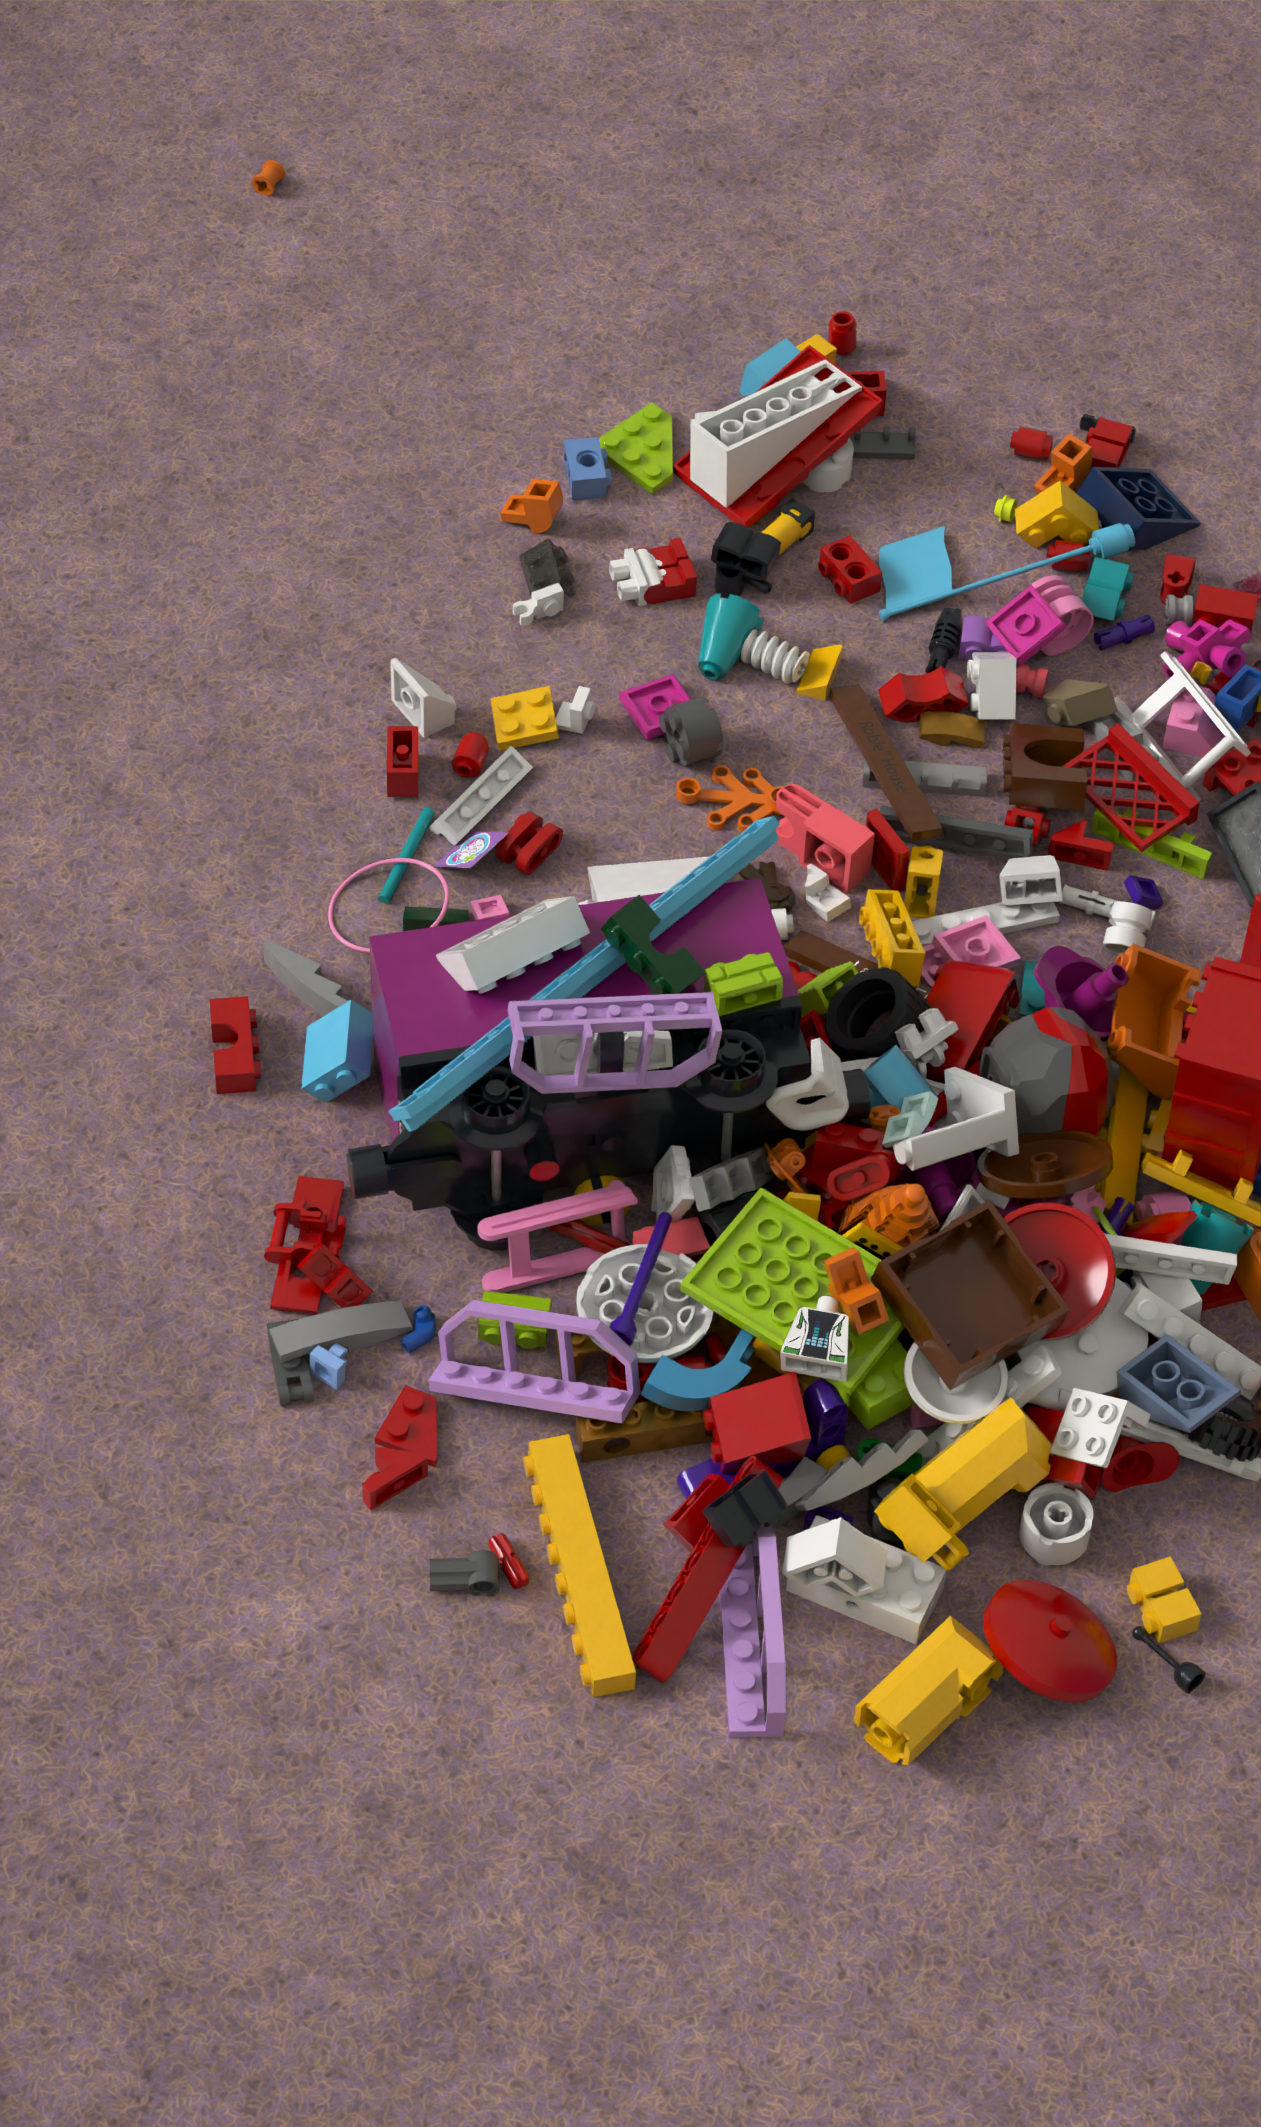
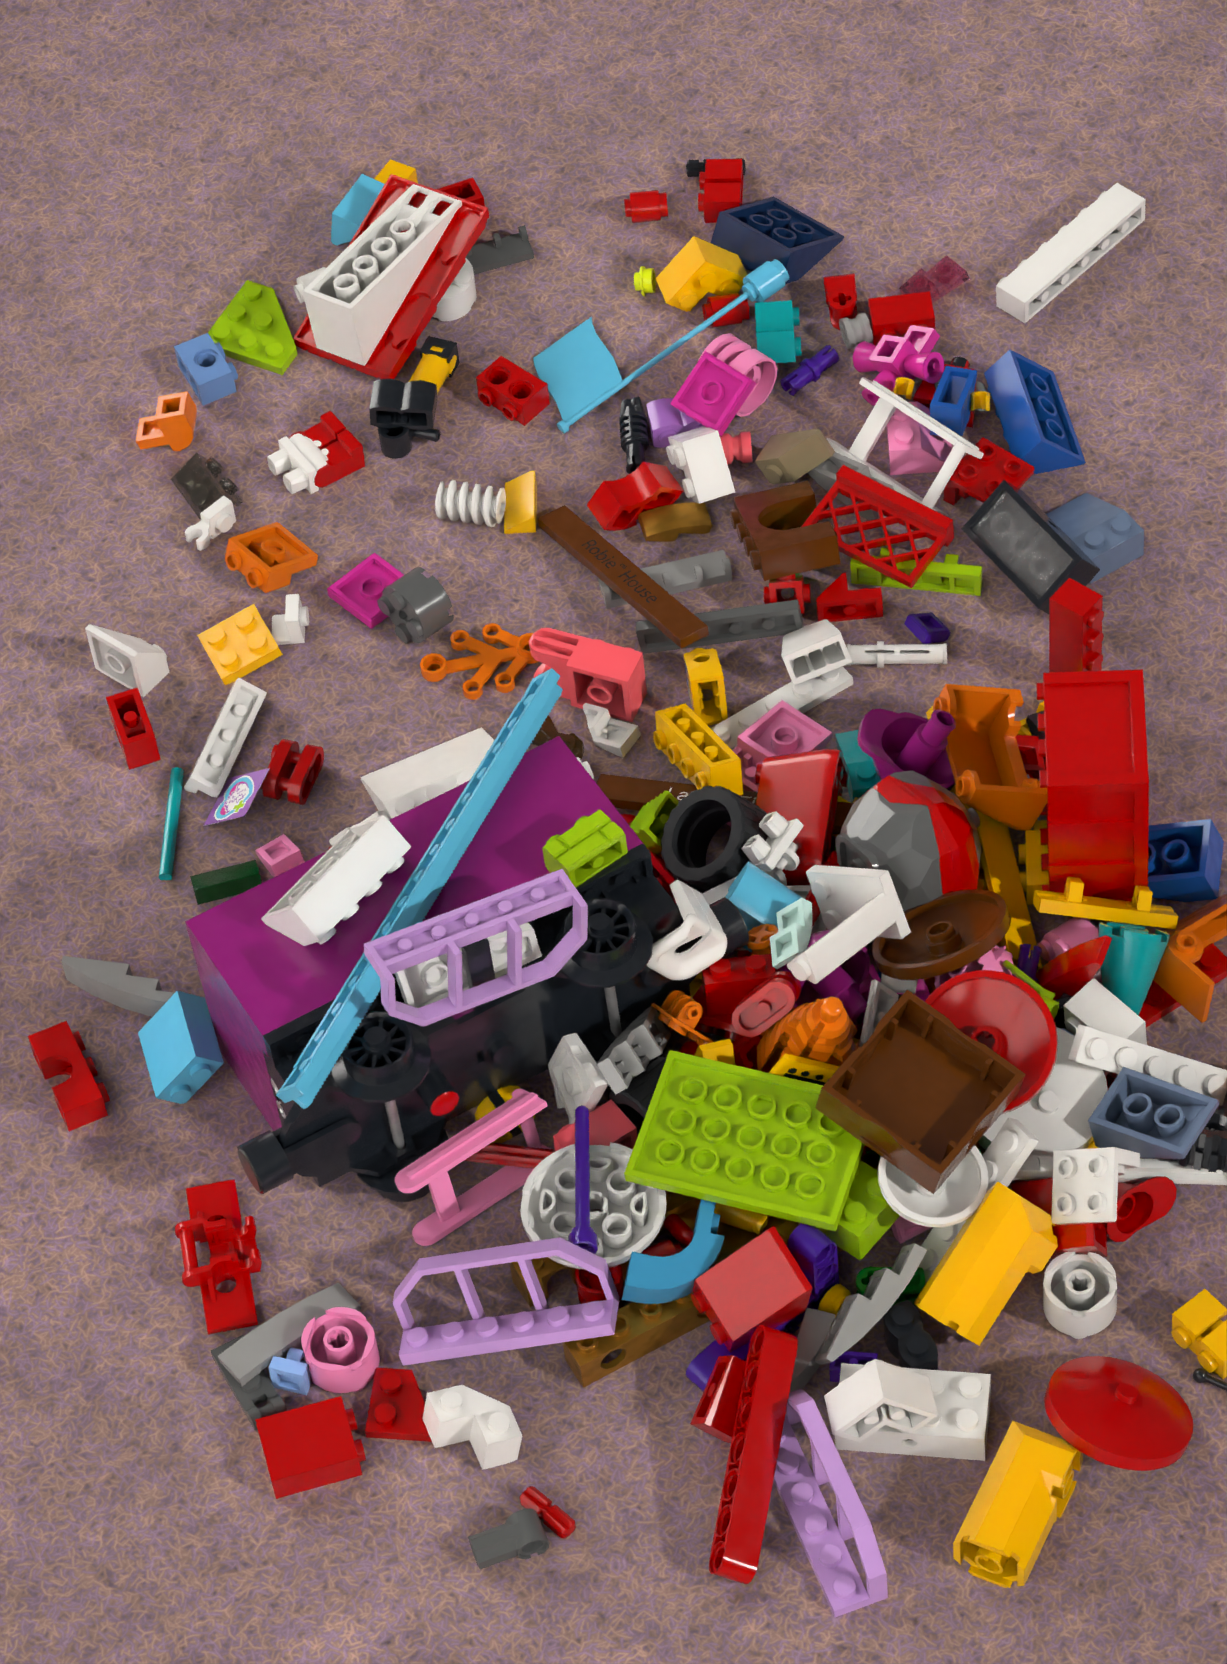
camera: 10 degrees left, 0 degrees up
(321, 1435) = (310, 1446): none -> red brick
(334, 1277) = (263, 1281): red slope -> none
(373, 865) = (145, 842): bright pink piece -> none
(379, 1359) = (340, 1350): none -> bright pink brick
(398, 1472) = (401, 1460): red slope -> none
(423, 1329) = (371, 1300): blue arm -> none
(468, 1452) = (465, 1415): none -> white brick
(470, 755) = (199, 700): red brick -> none
(525, 1335) = (446, 1283): lime brick -> none
(578, 649) = (268, 556): none -> orange plate
(580, 1565) = (623, 1493): yellow brick -> none
(630, 932) = (456, 836): dark green arch -> none
(724, 633) = (412, 495): teal cone -> none
(745, 1509) = (773, 1380): black brick -> none
(818, 1342) = (787, 1188): torso -> none
(842, 332) = (415, 150): red brick -> none
(854, 1292) = (803, 1128): orange brick -> none
(889, 852) = (662, 667): red tile -> none
(922, 1523) = (951, 1337): yellow brick -> none
(1070, 464) = (693, 217): orange brick -> none
(1128, 924) = (926, 667): white wheel -> none
(1172, 1259) = (1104, 990): white hinge -> none

